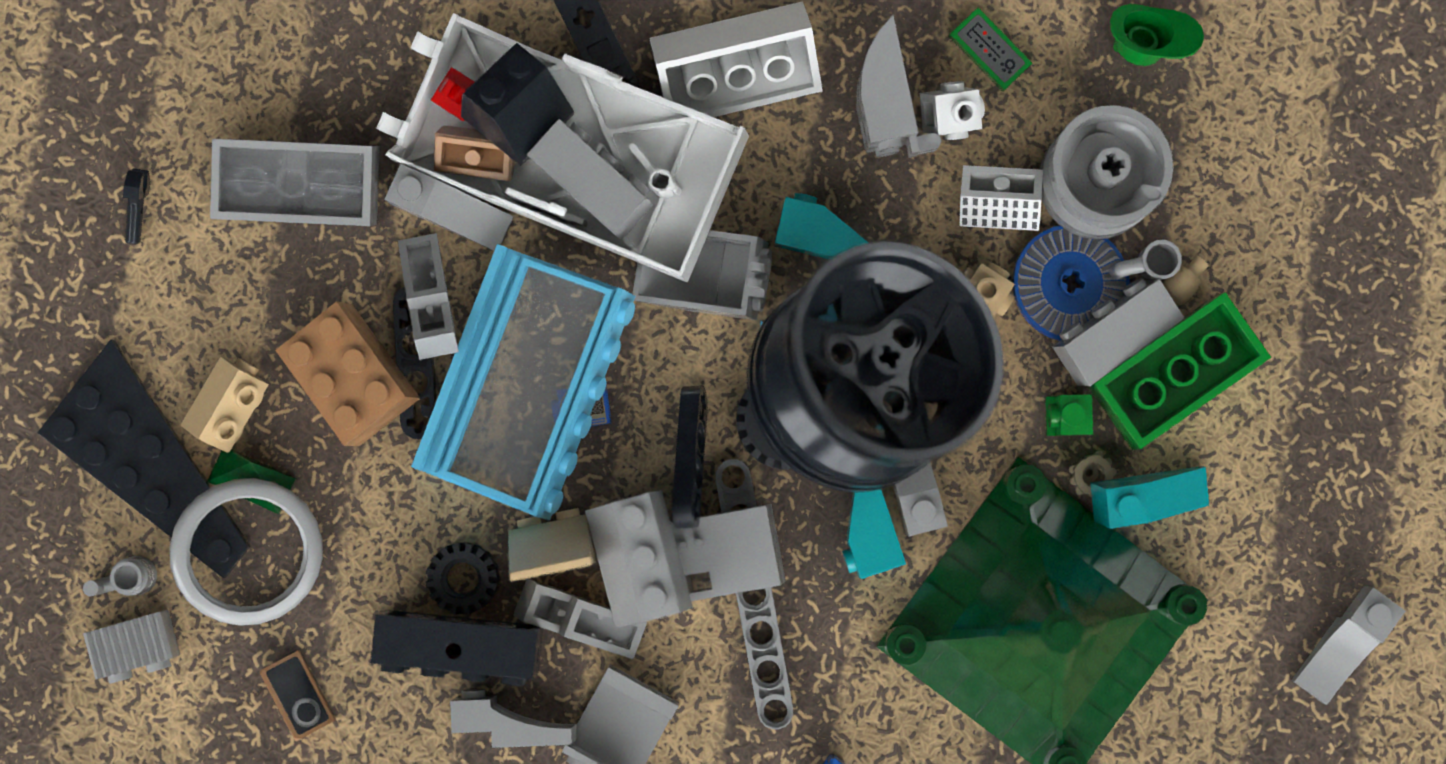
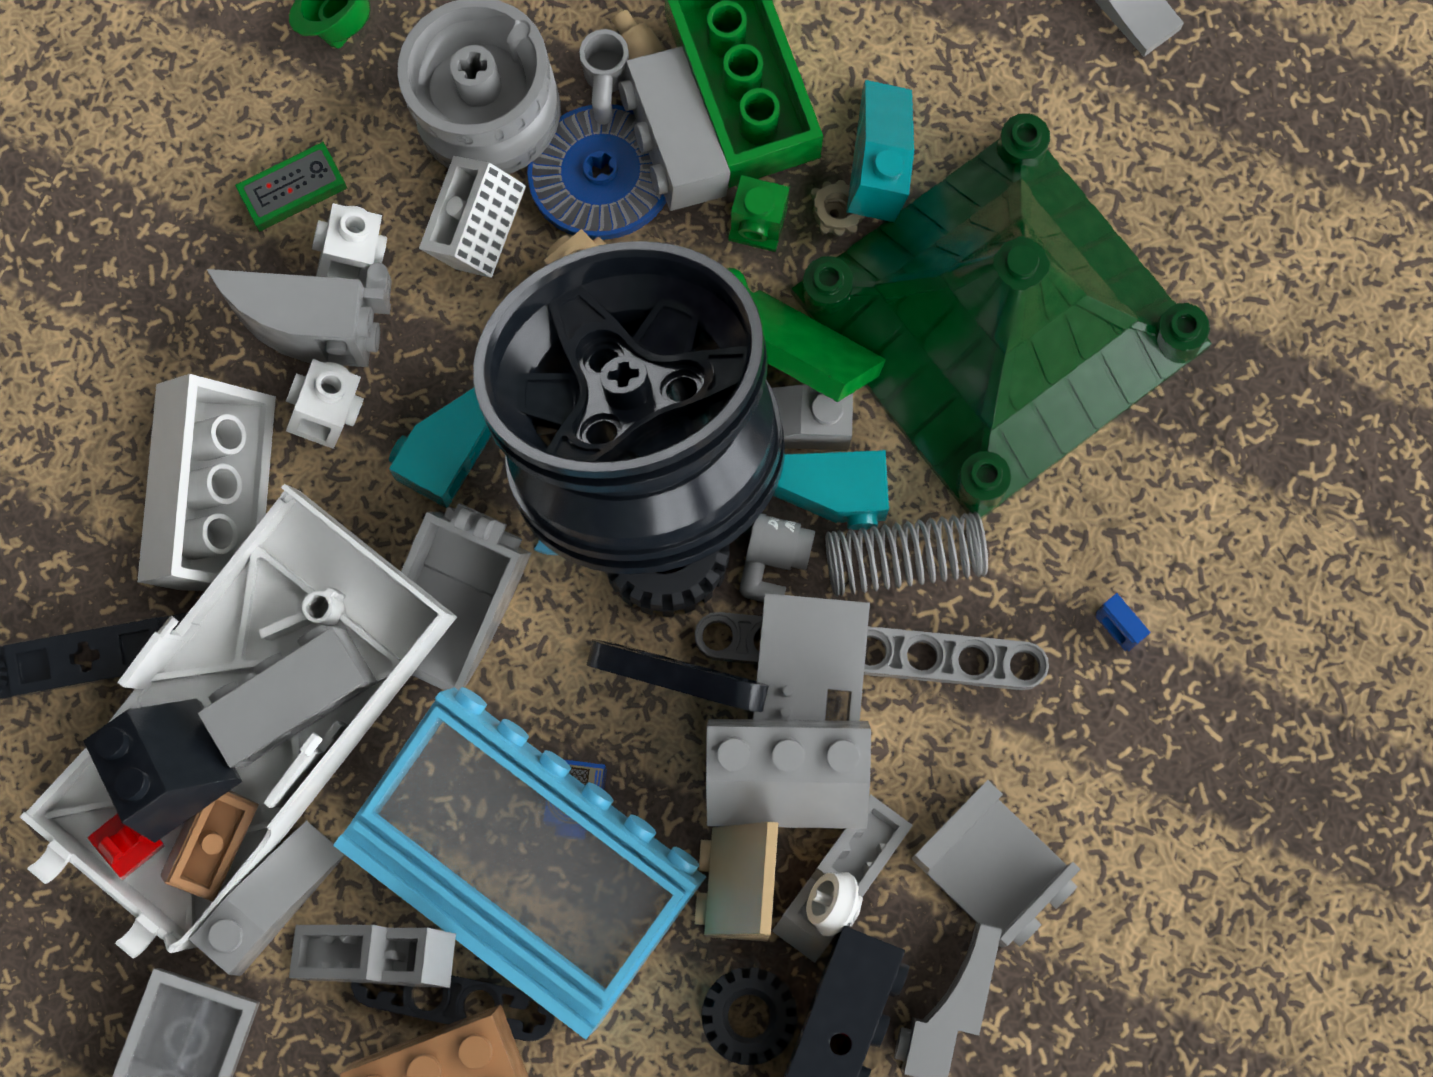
camera: 70 degrees left, 10 degrees down
(553, 618) = (834, 903): none -> white hat
(814, 502) = (773, 544): none -> light grey piece
(824, 131) = (323, 402): none -> white brick
(854, 651) = (975, 539): none -> light grey piece
(971, 476) = (812, 350): none -> green tile

